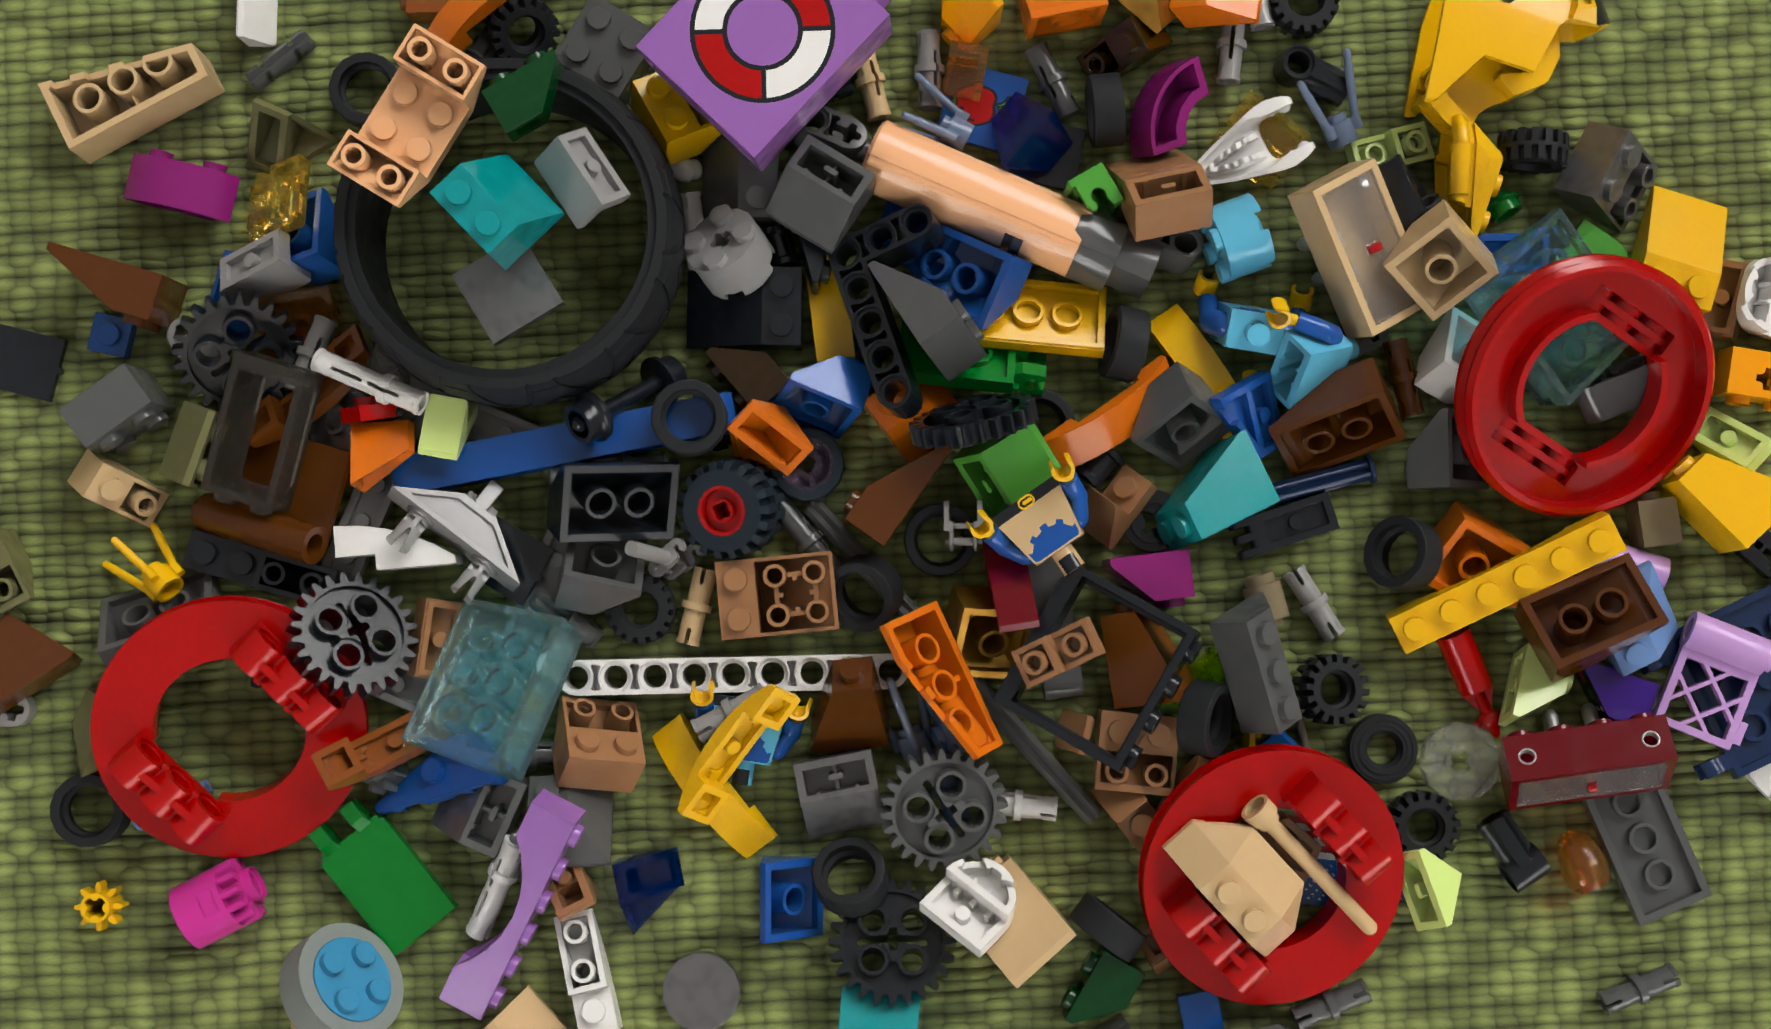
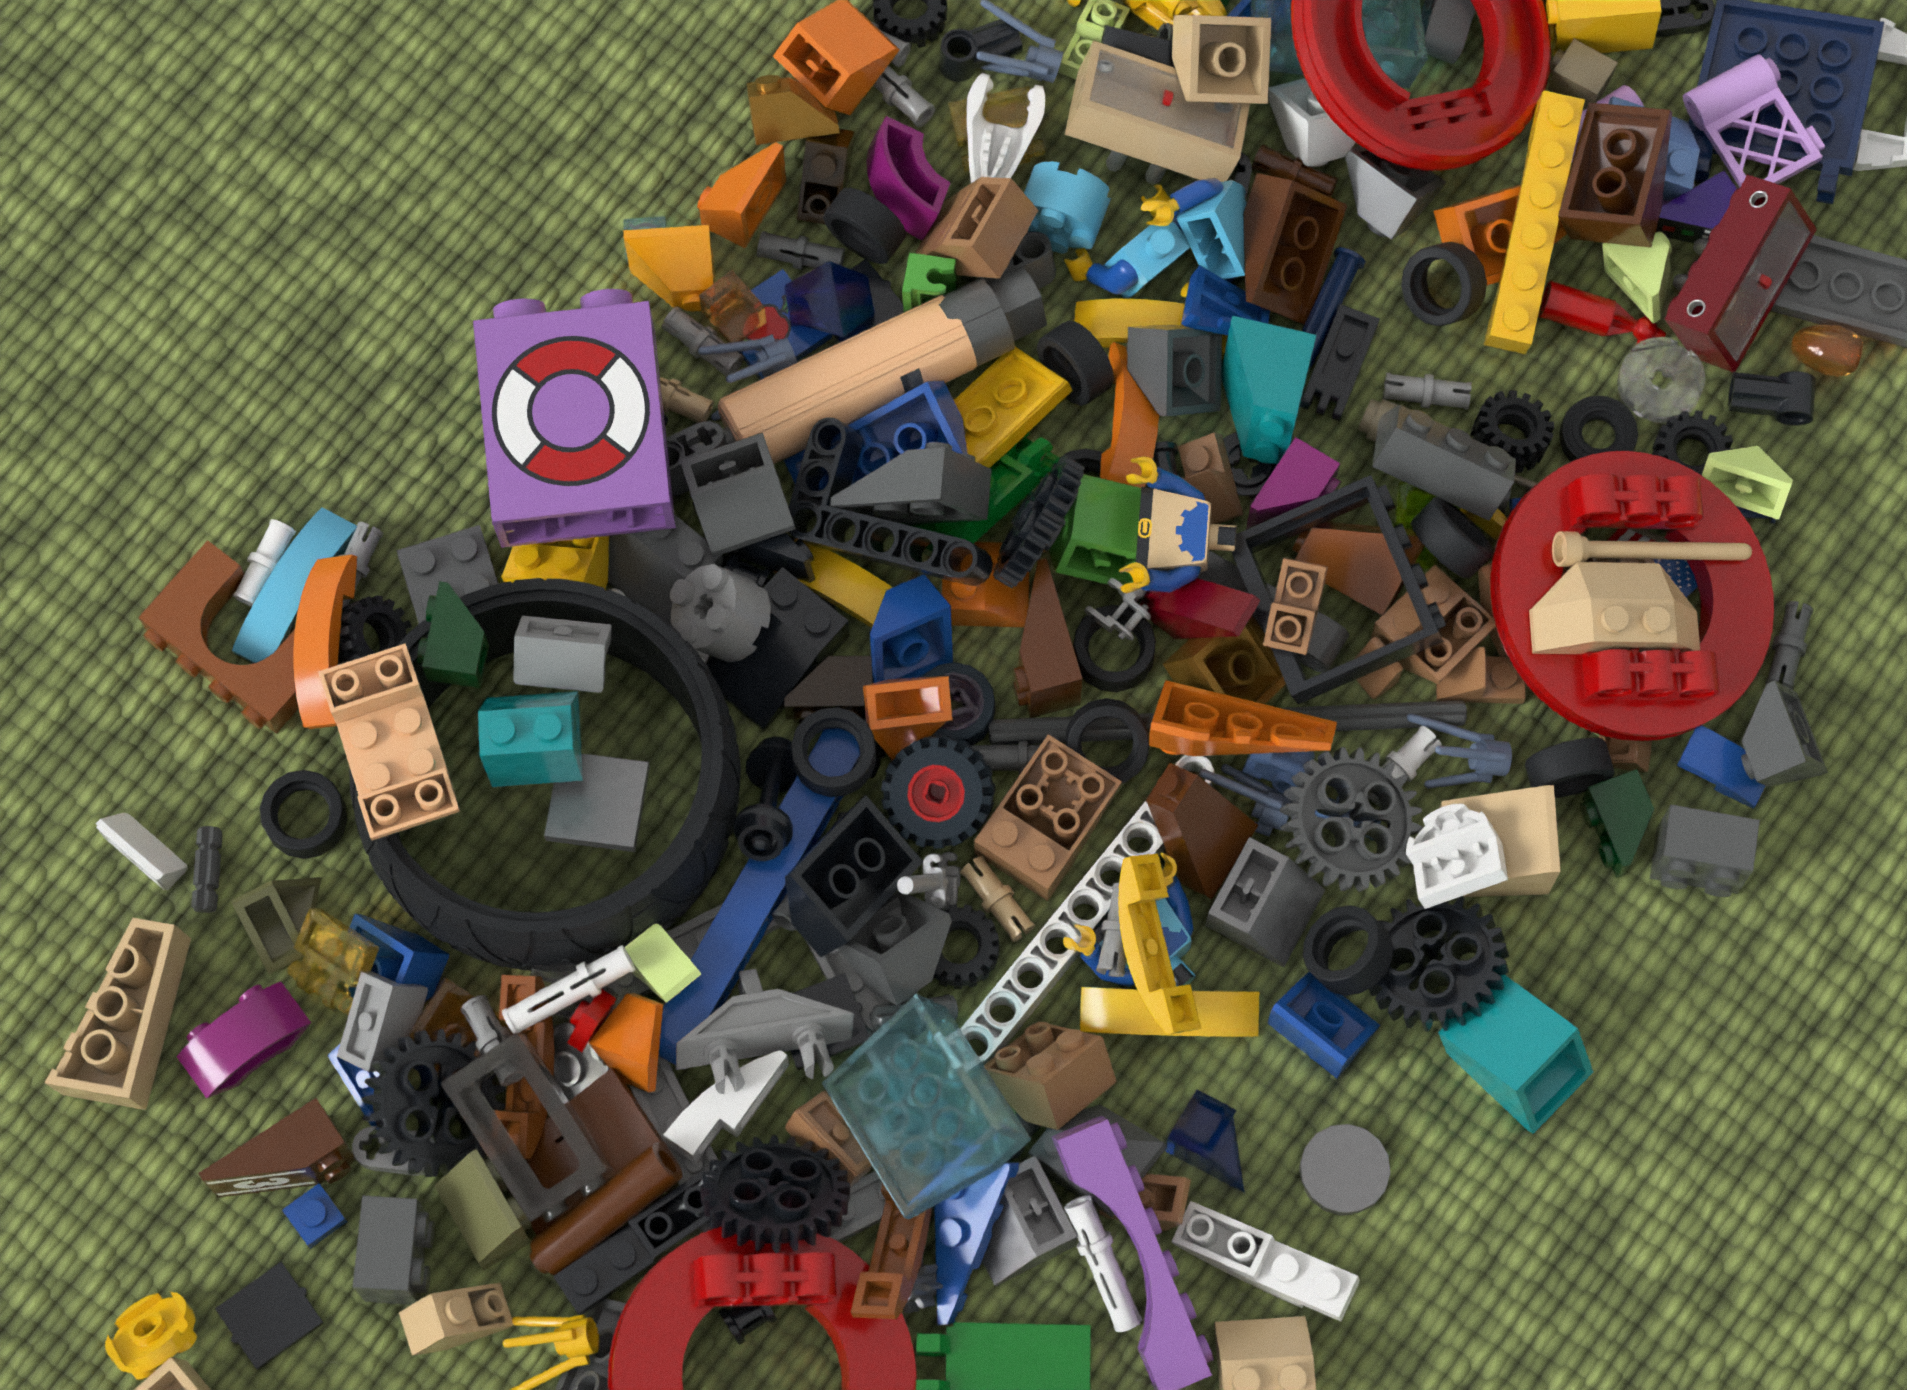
camera: 45 degrees left, 15 degrees down
(1070, 858) = (1484, 756): none -> sand blue plant

